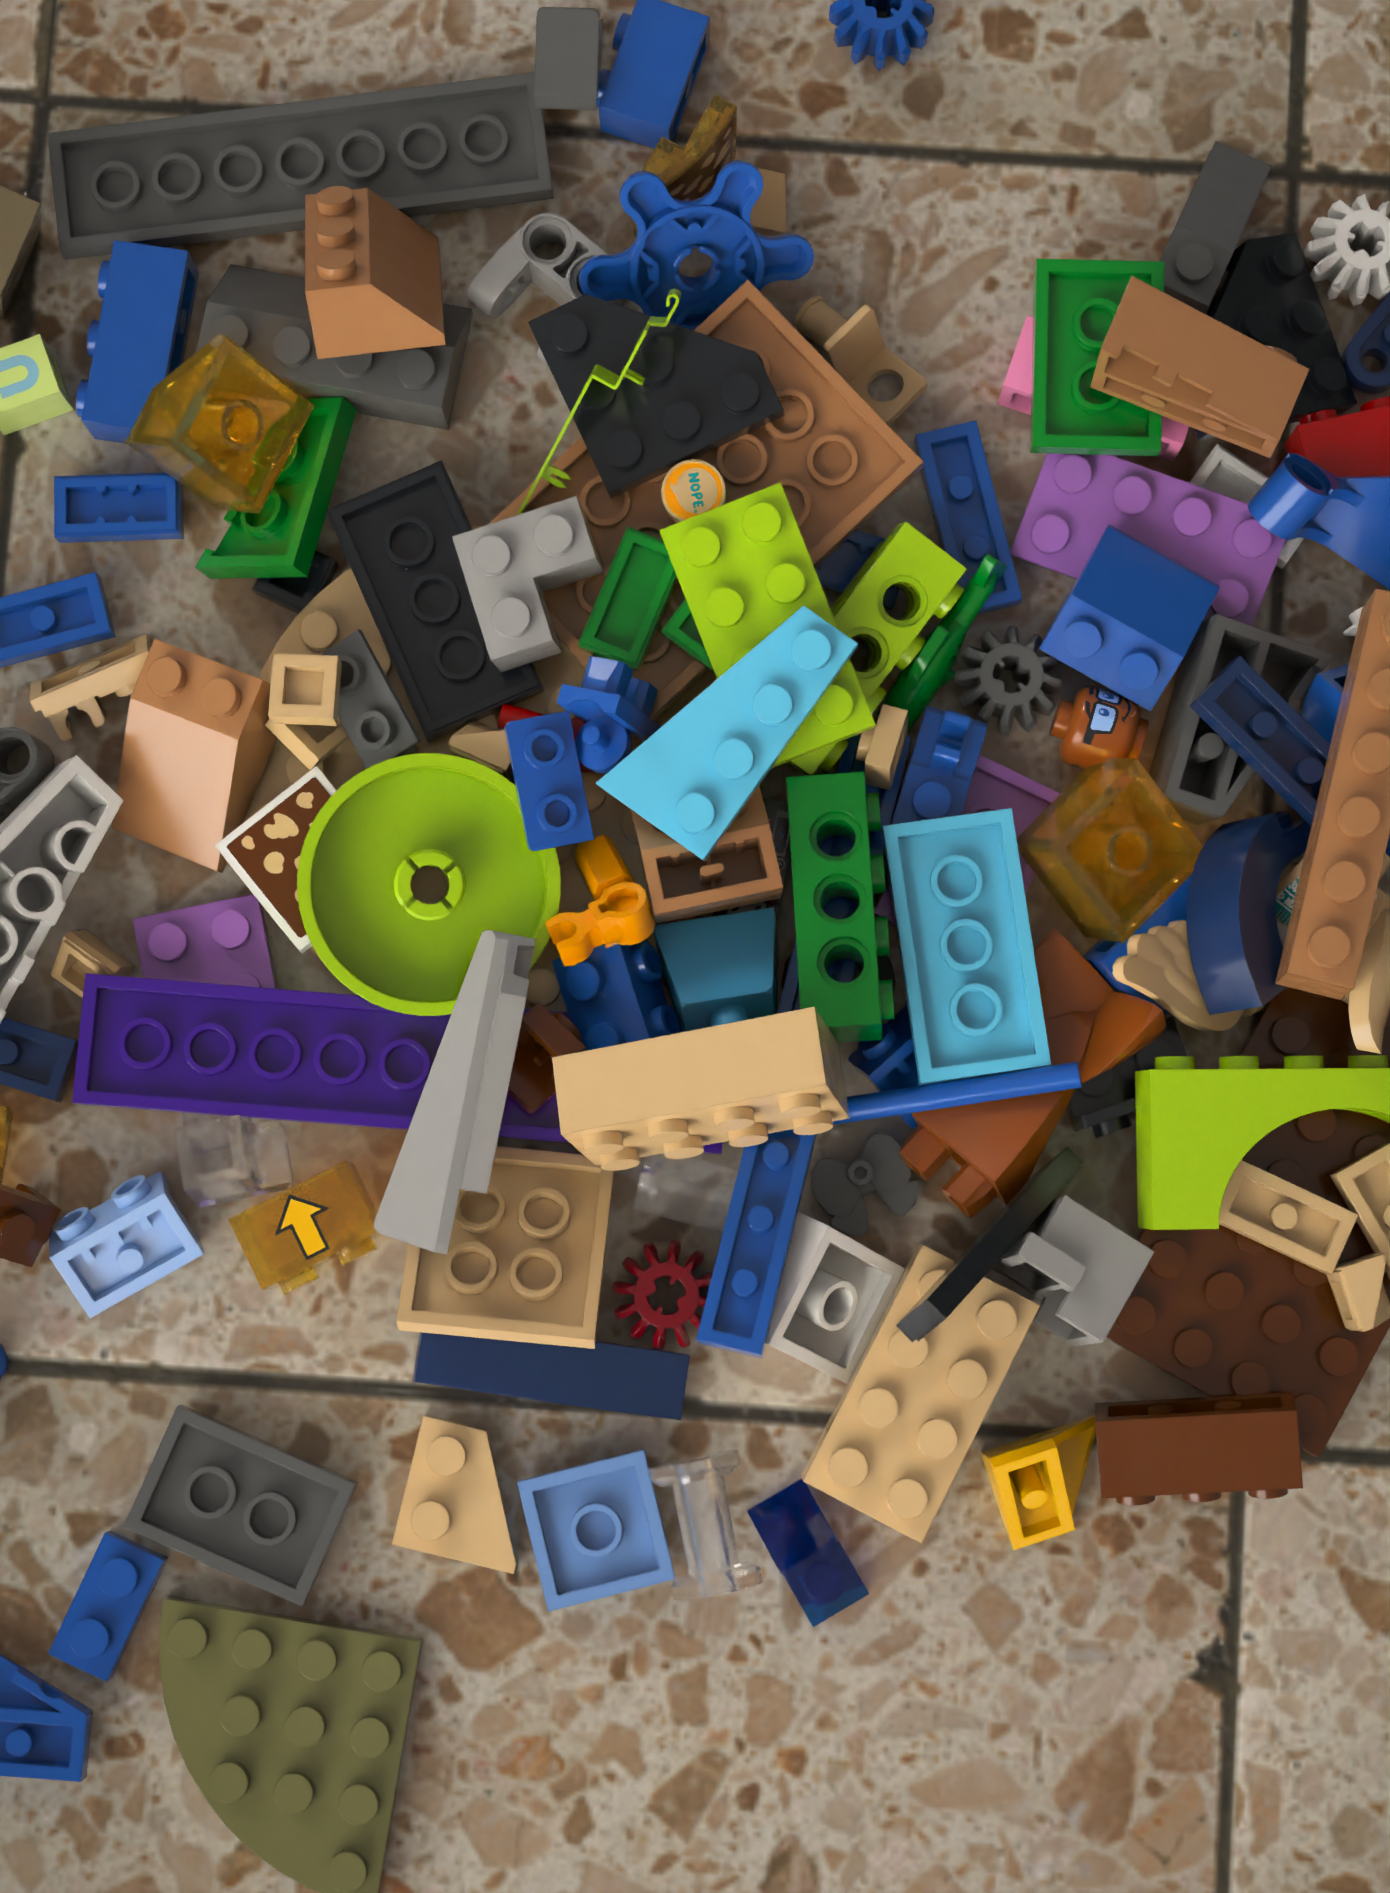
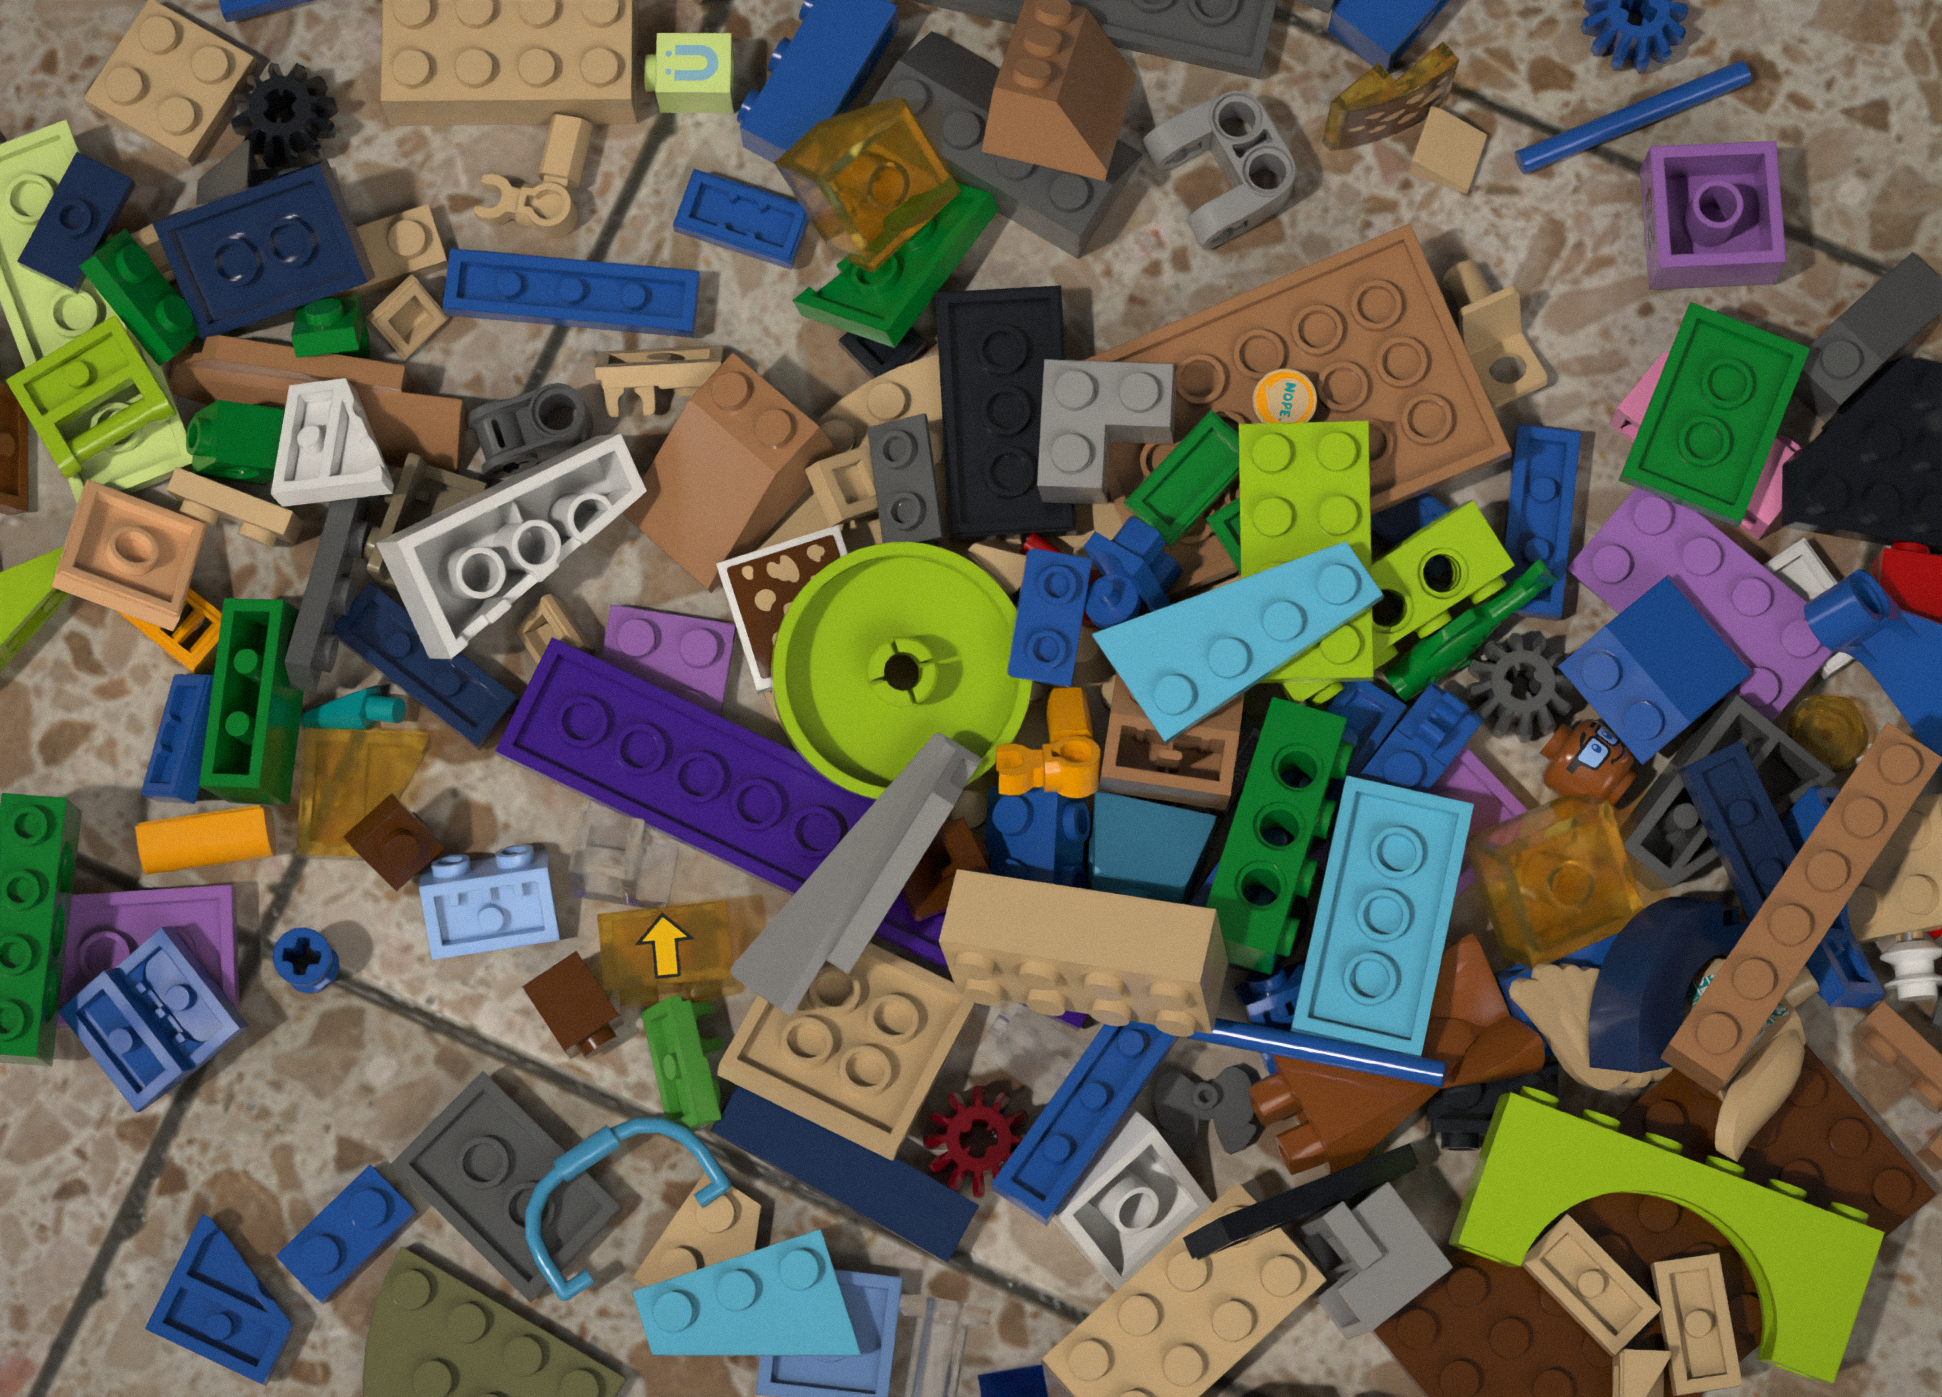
camera: 20 degrees right, 5 degrees down
(241, 1313) = (575, 1007): none -> reddish brown brick
(305, 689) = (855, 450): tan plate -> none
(305, 1449) = (586, 1155): none -> dark azure piece
(372, 1344) = (681, 1062): none -> bright green plate
(514, 1532) = (752, 1305): none -> medium azure wing
(609, 379) = (1244, 268): lime piece -> none
(673, 227) = (1351, 153): blue plate -> none
(691, 399) = (1280, 290): black plate -> none
(883, 746) = (1375, 703): tan plate -> none
(913, 108) = (1633, 117): none -> blue bar
(1023, 170) = (1712, 215): none -> medium lavender brick
(1197, 370) = (1797, 460): medium nougat wedge -> none
(1312, 599) = (1841, 719): none -> clear yellow plate

